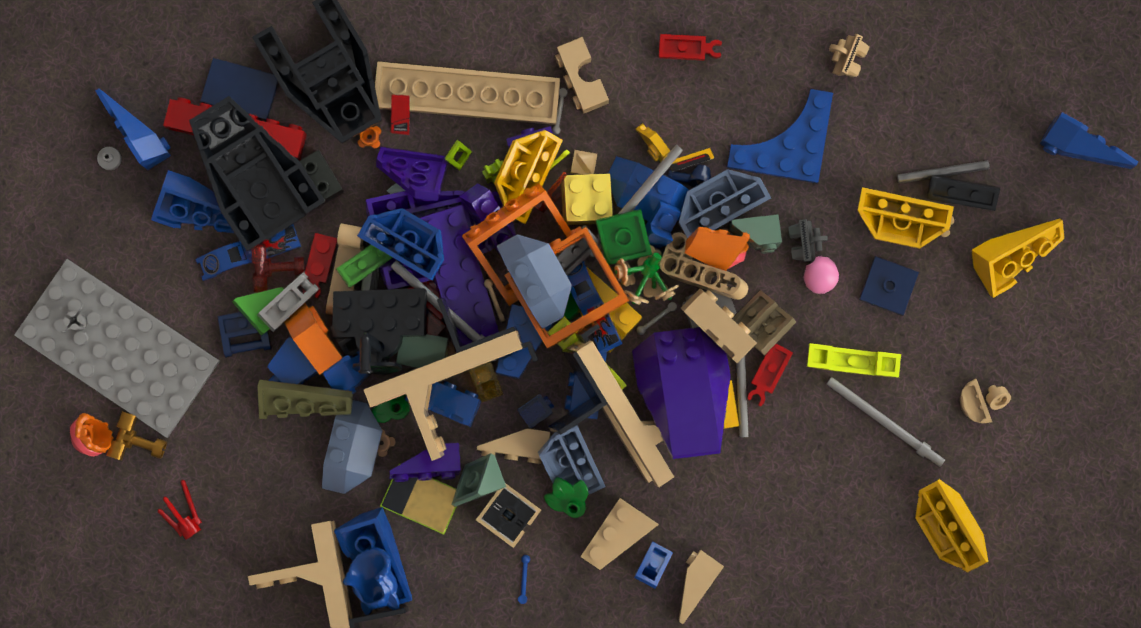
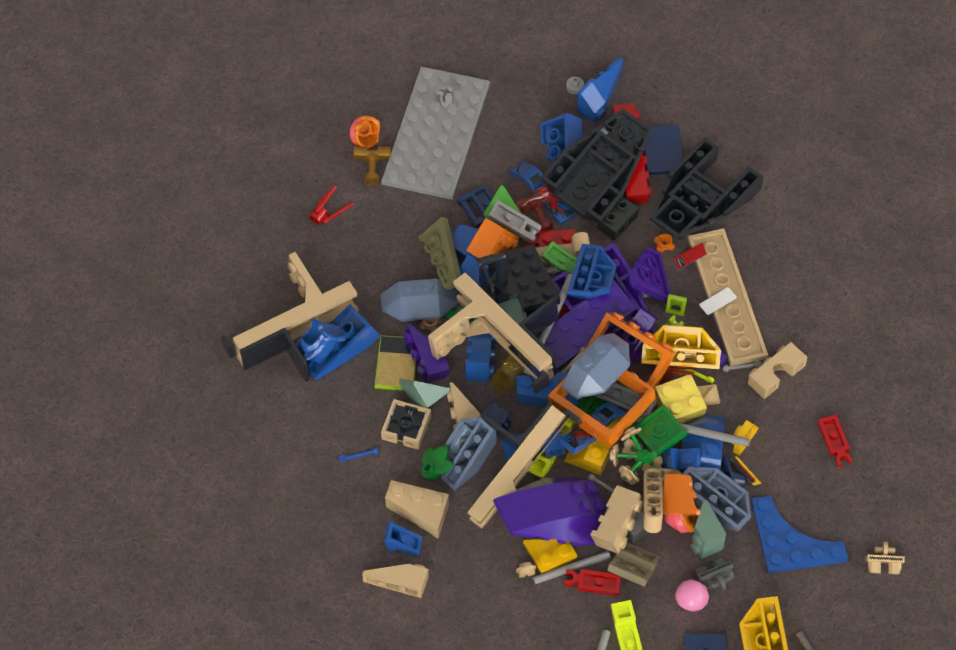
camera: 70 degrees right, 25 degrees down
(472, 106) = (717, 301): none -> white sticker
(731, 441) = (526, 569): none -> tan plate

